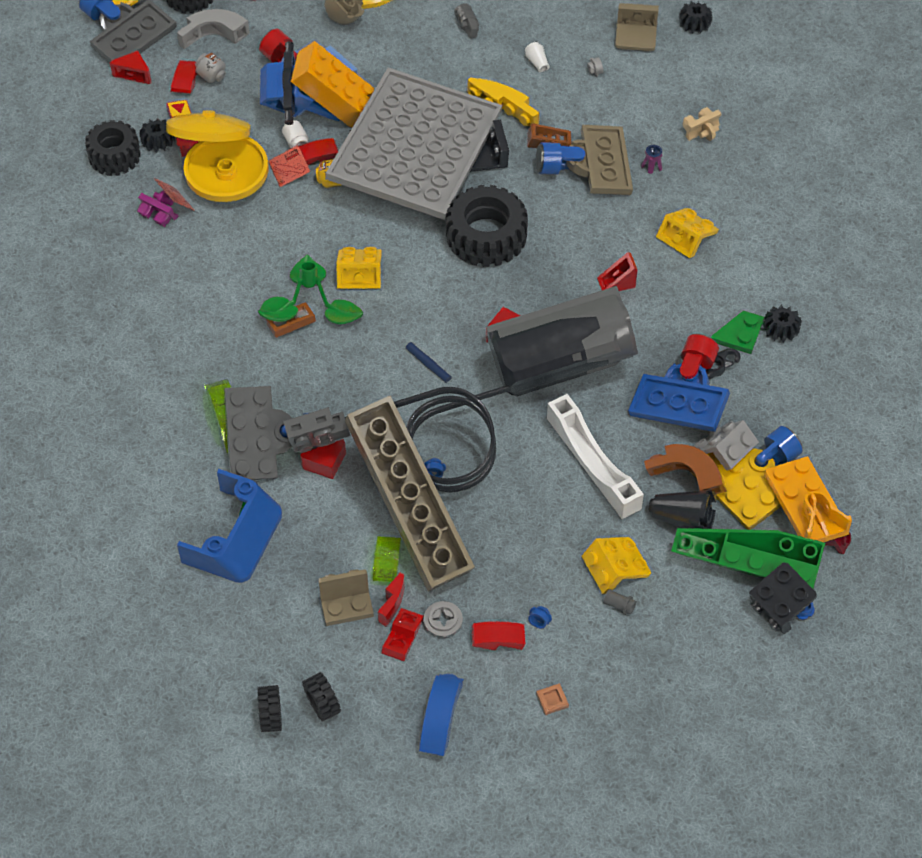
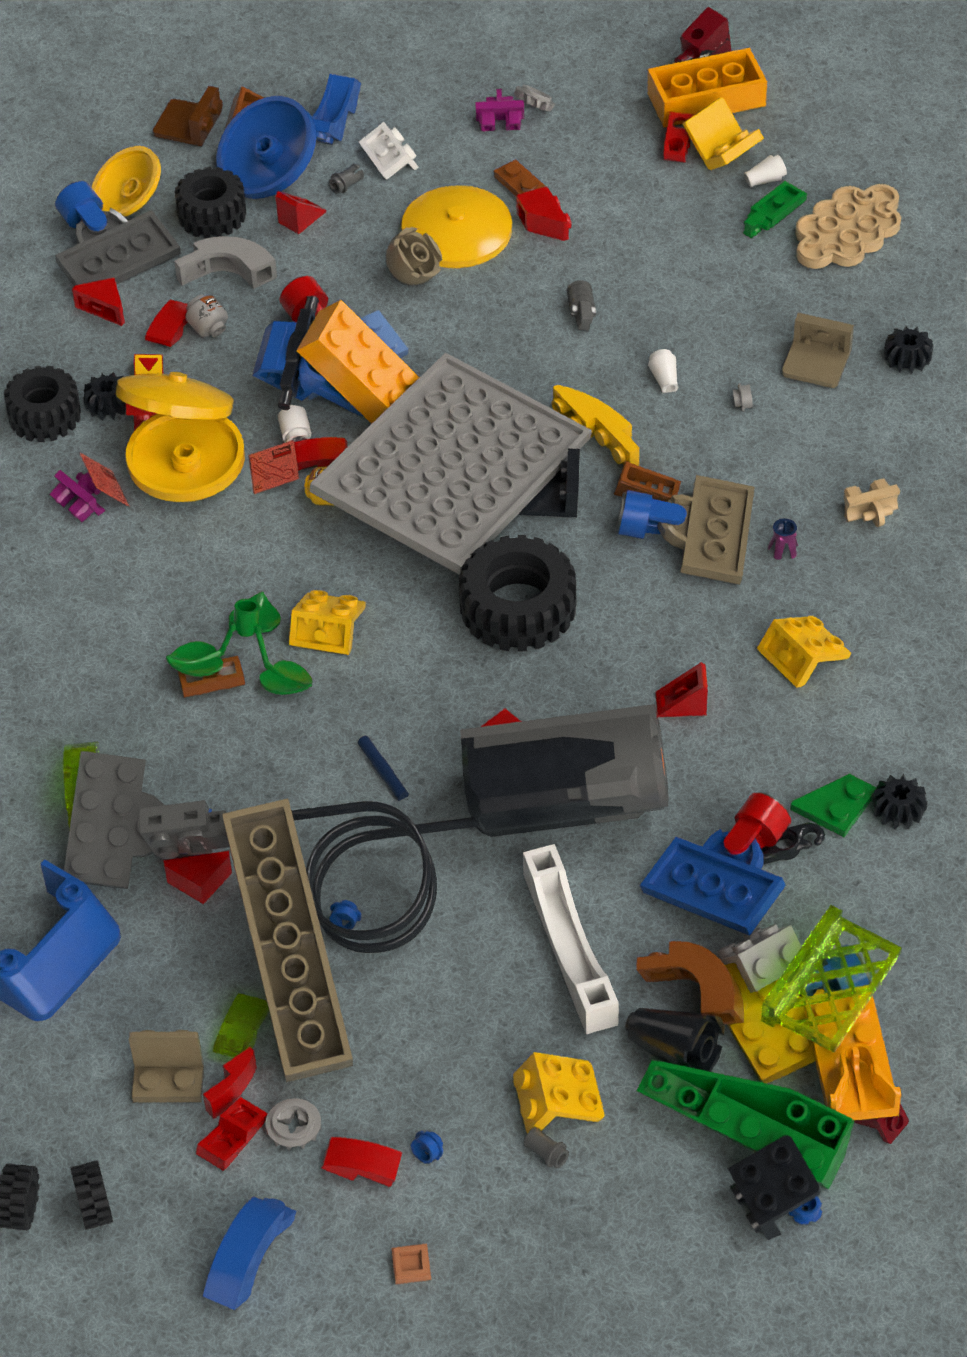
camera: 15 degrees right, 5 degrees down
(763, 442) = (802, 972): none -> clear neon green fence

